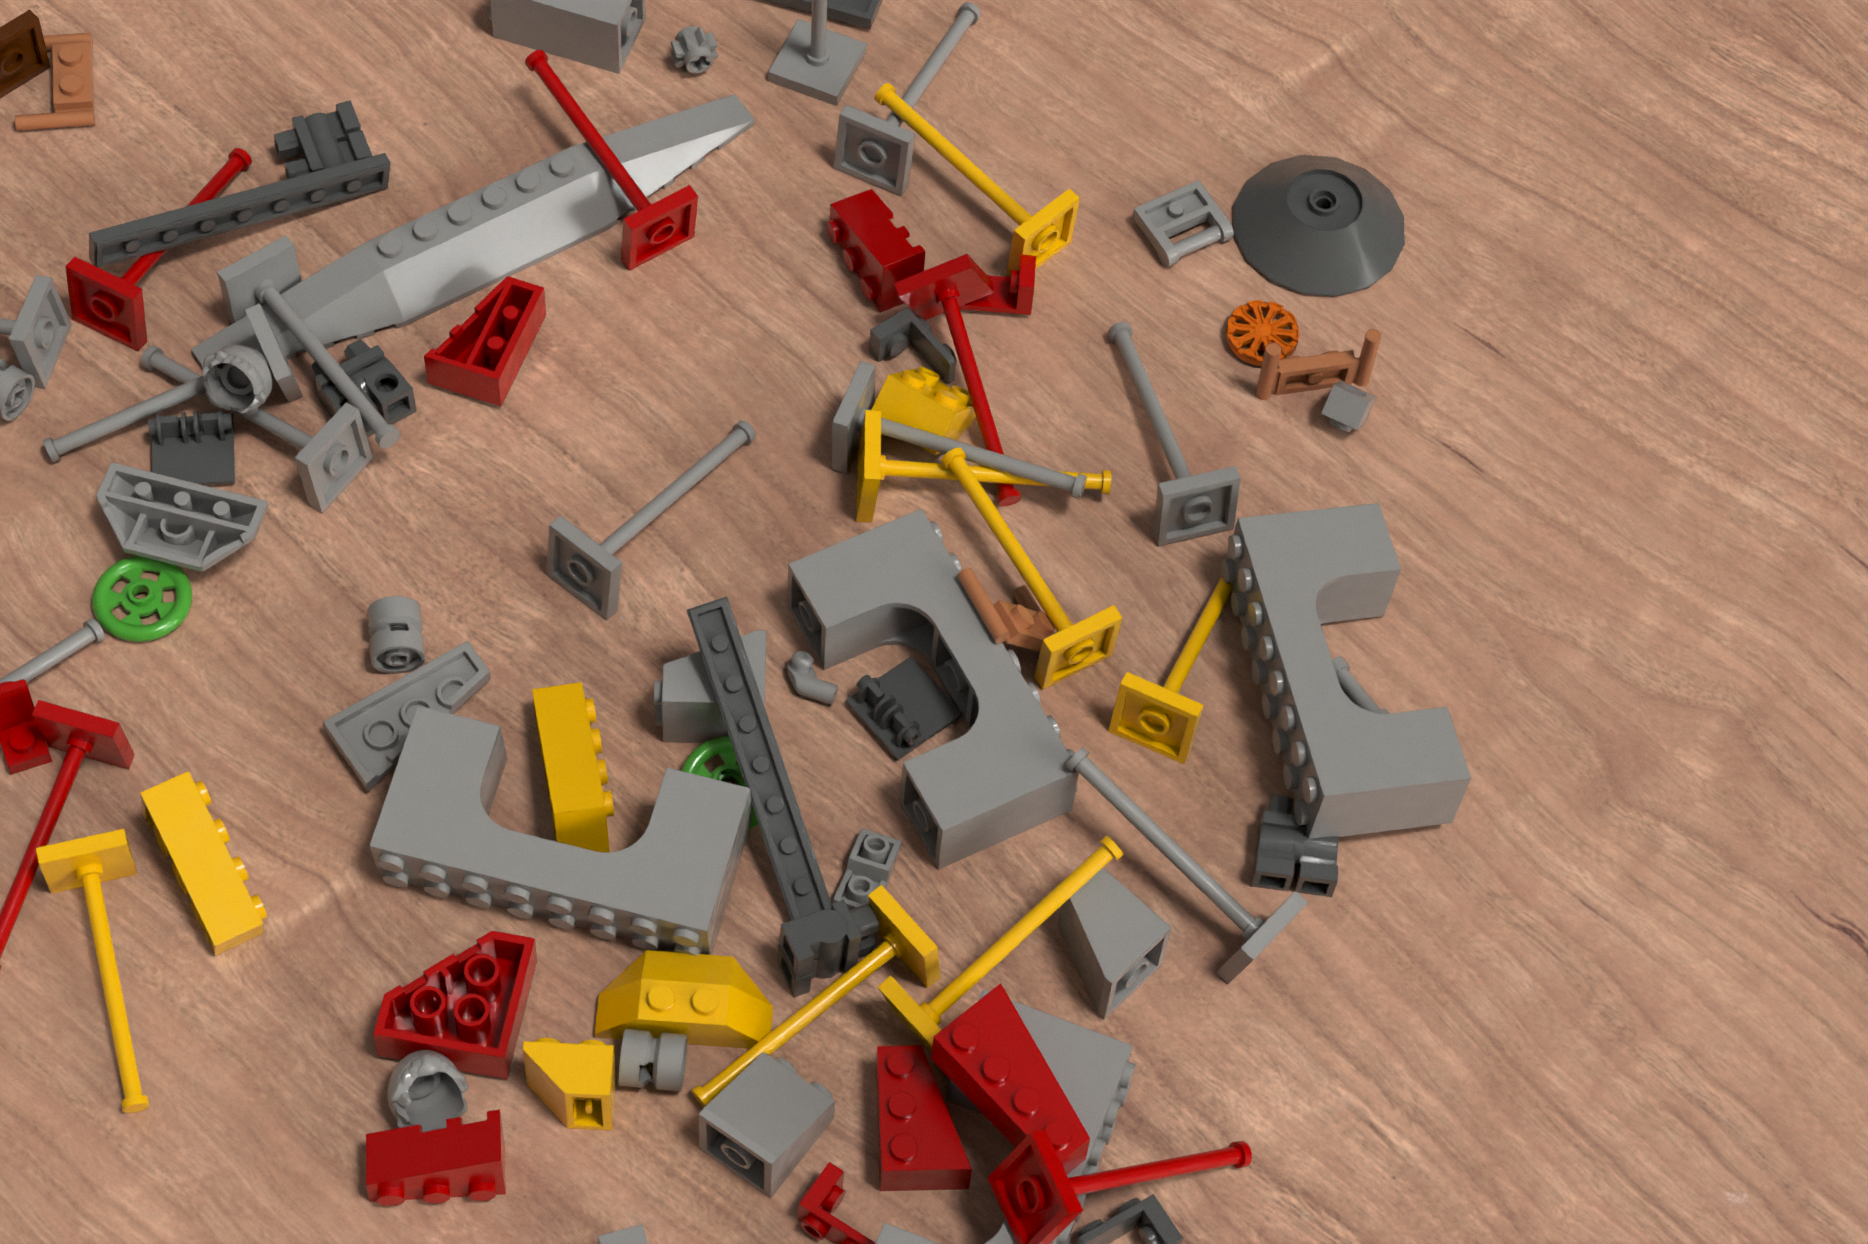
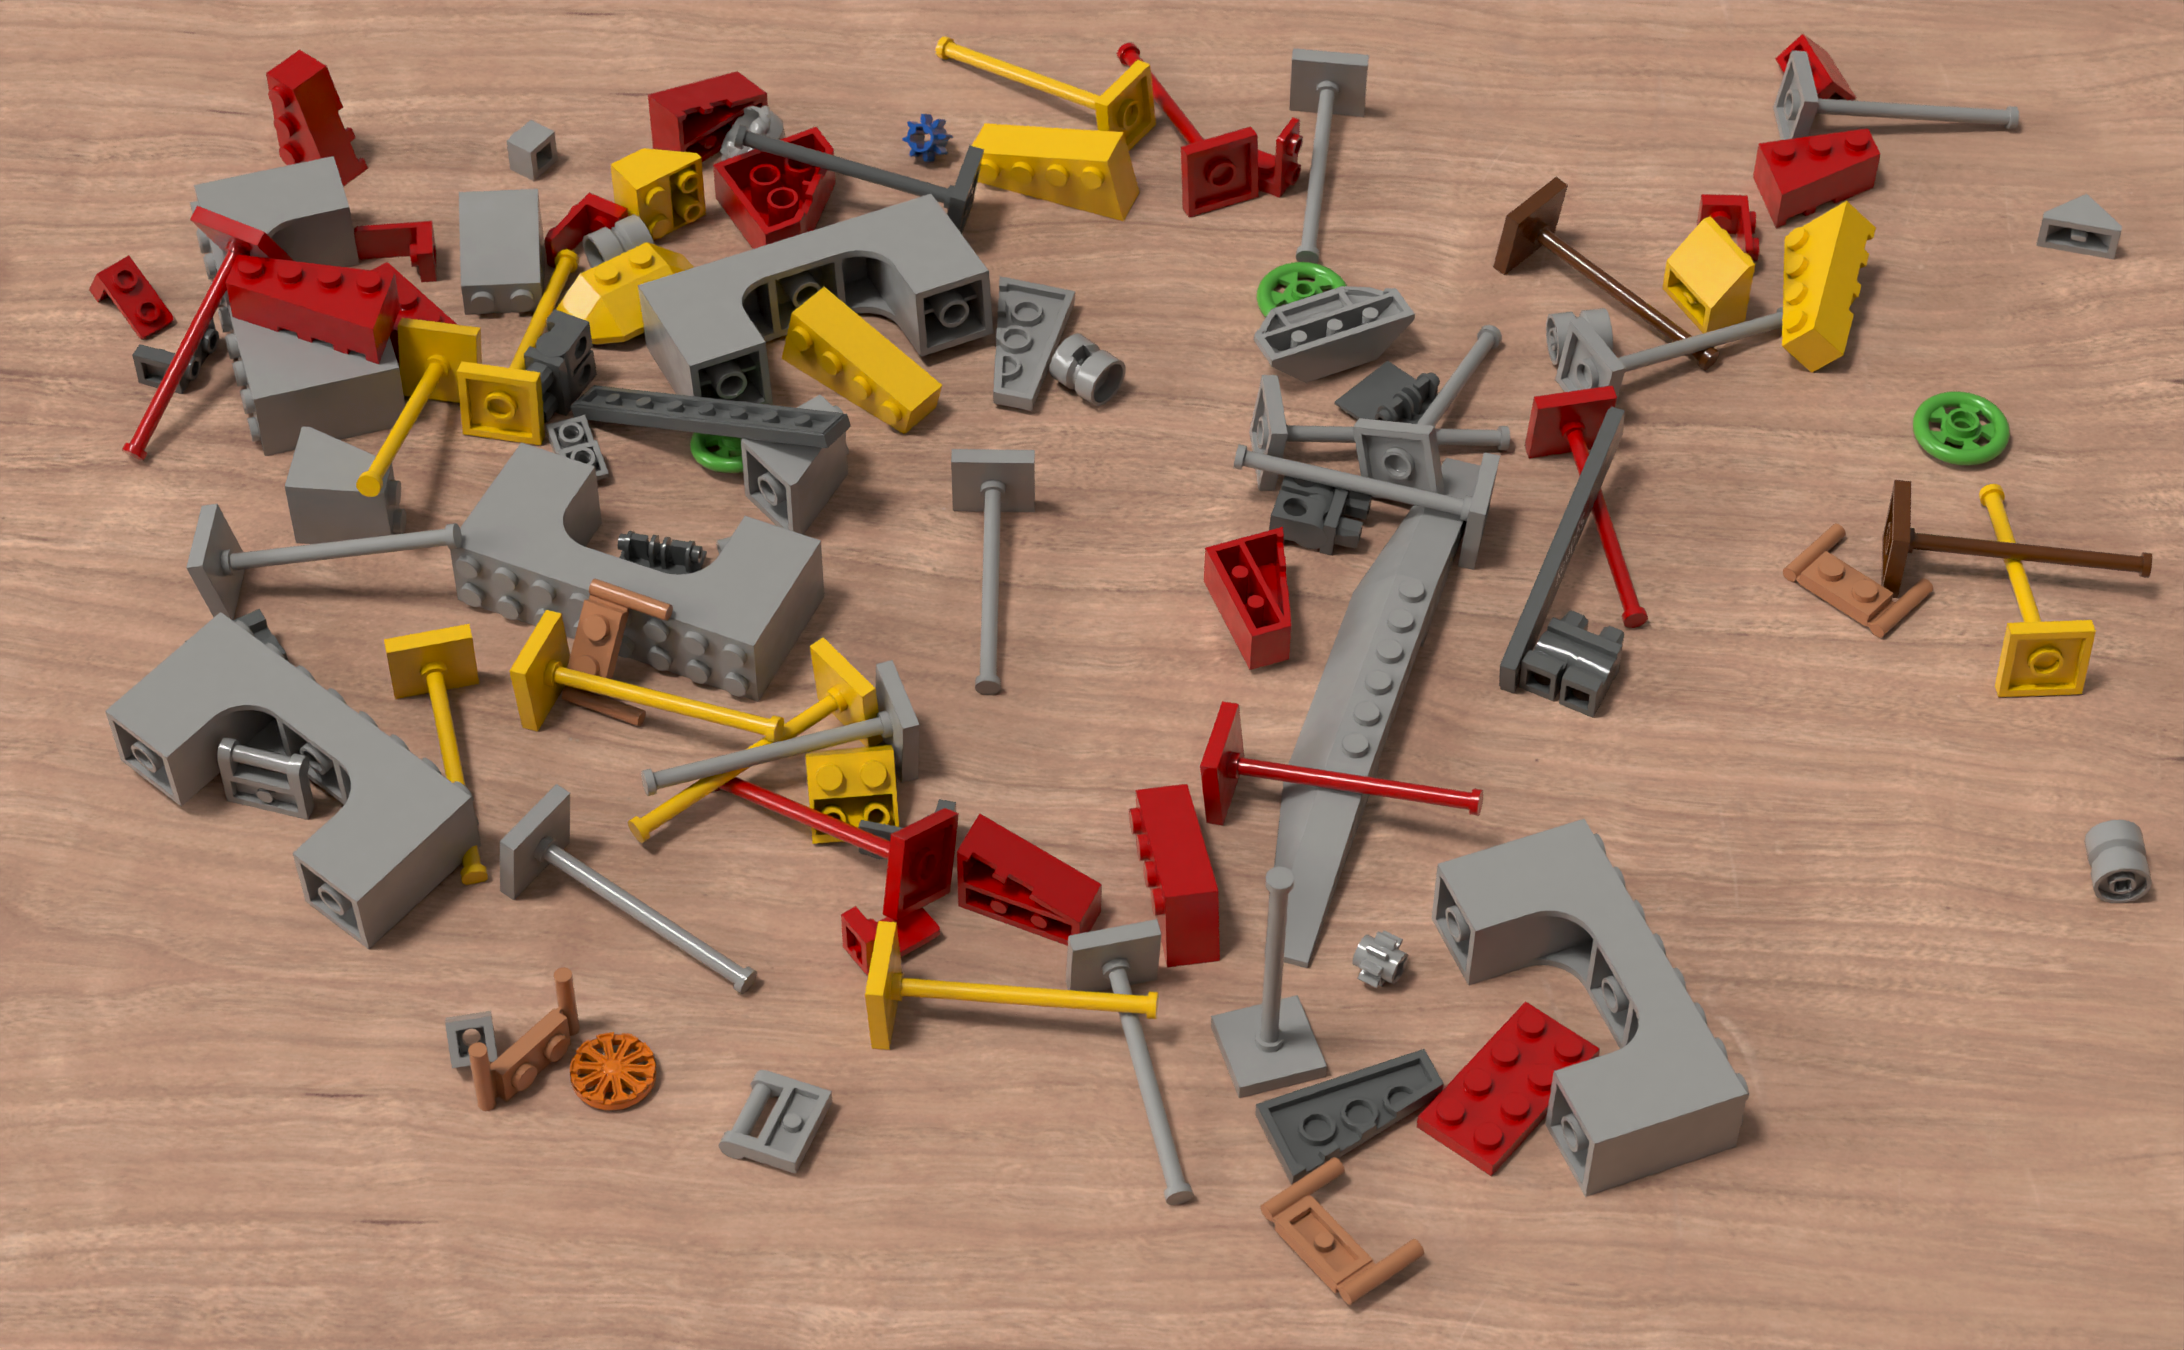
camera: 145 degrees right, 10 degrees down
(237, 379) = (1391, 399): light grey hair -> none
(269, 986) = (937, 142): none -> blue gear
(330, 870) = (956, 198): none -> dark grey tile
(655, 1129) = (583, 218): none -> red bracket
(763, 188) = (1177, 874): none -> red wedge
(1314, 247) = (652, 1257): dark grey dish -> none

